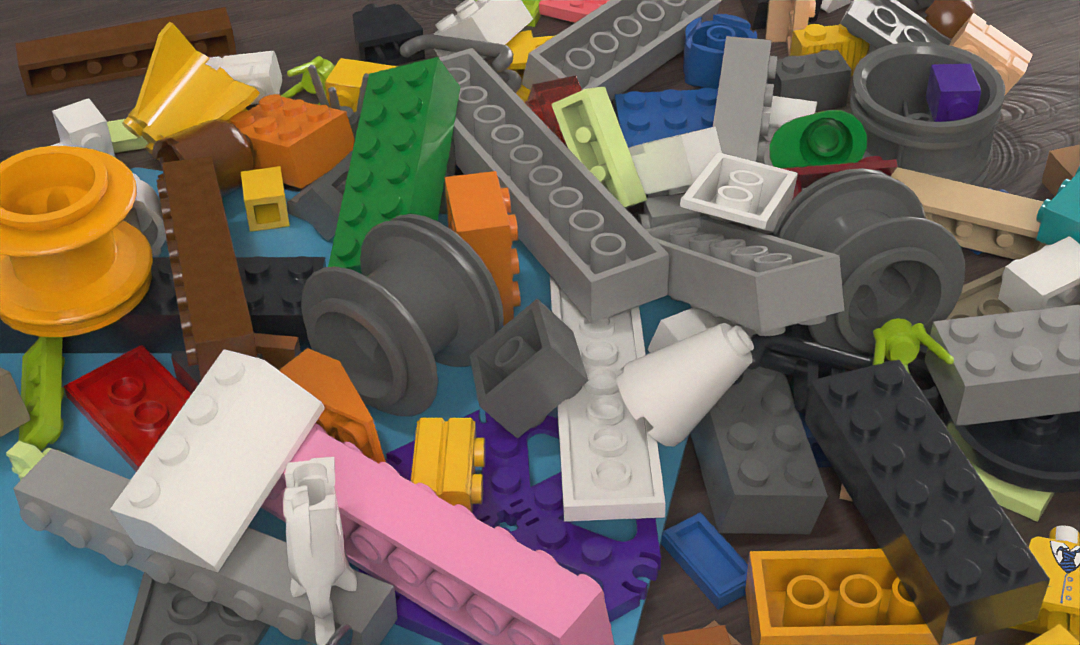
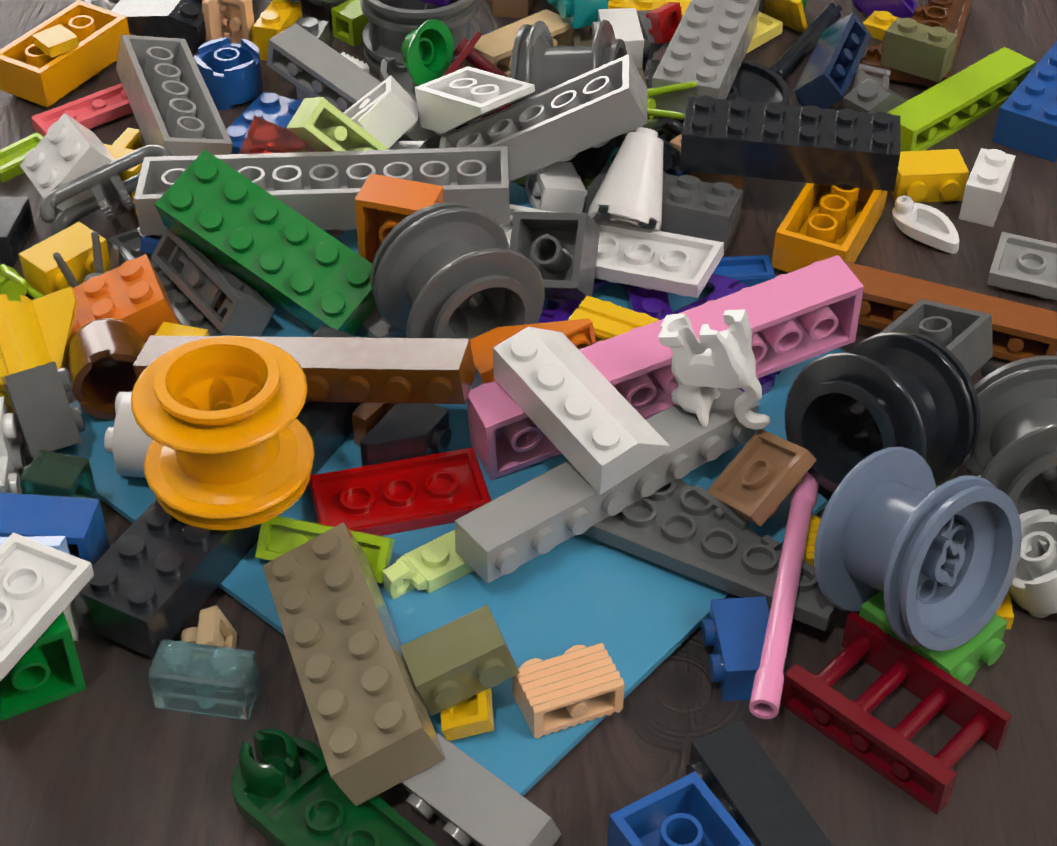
camera: 65 degrees left, 0 degrees up
(127, 137) = (43, 408): none -> dark grey brick

